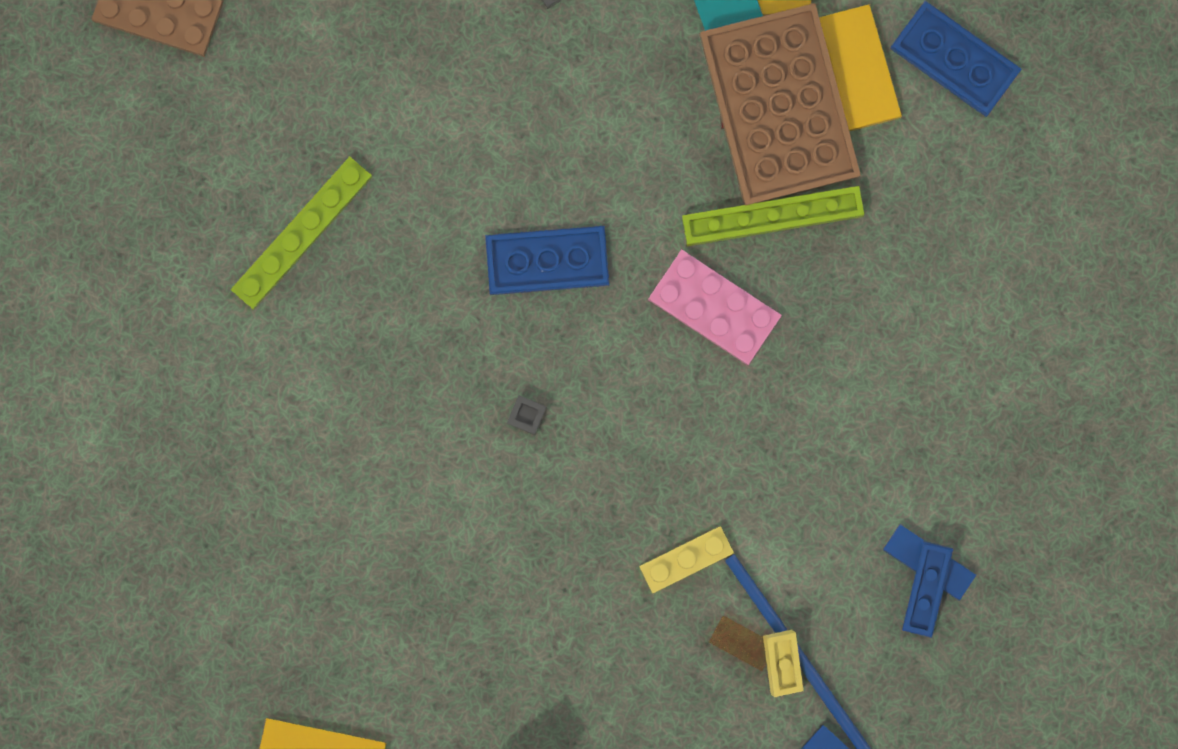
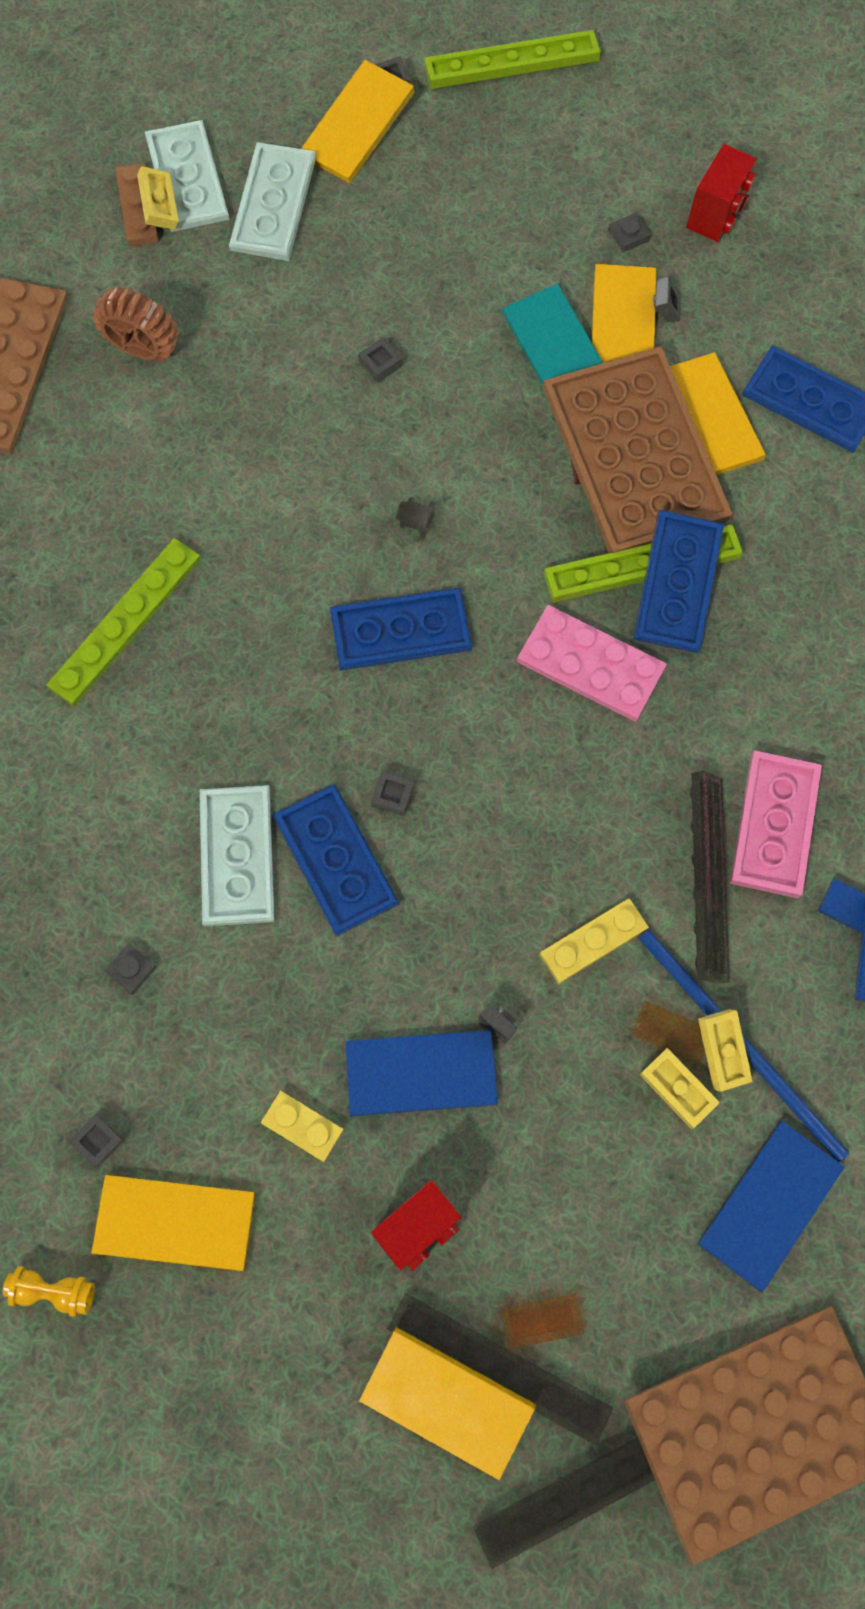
camera: 10 degrees left, 10 degrees down
(260, 690) = (96, 1141): none -> dark grey plate
(293, 549) = (130, 969): none -> dark grey plate
(388, 458) = (236, 856): none -> light aqua tile
(428, 693) = (302, 1126): none -> light yellow plate
(472, 469) = (335, 860): none -> blue tile
(529, 658) = (421, 1073): none -> blue tile
(570, 152) = (416, 515): none -> clear smoke brick
(597, 623) = (499, 1022): none -> dark grey plate
(741, 690) = (679, 1088): none -> light yellow plate
(792, 513) = (709, 878): none -> clear smoke plate
(801, 239) = (678, 581): none -> blue tile
(856, 471) = (776, 824): none -> bright pink plate

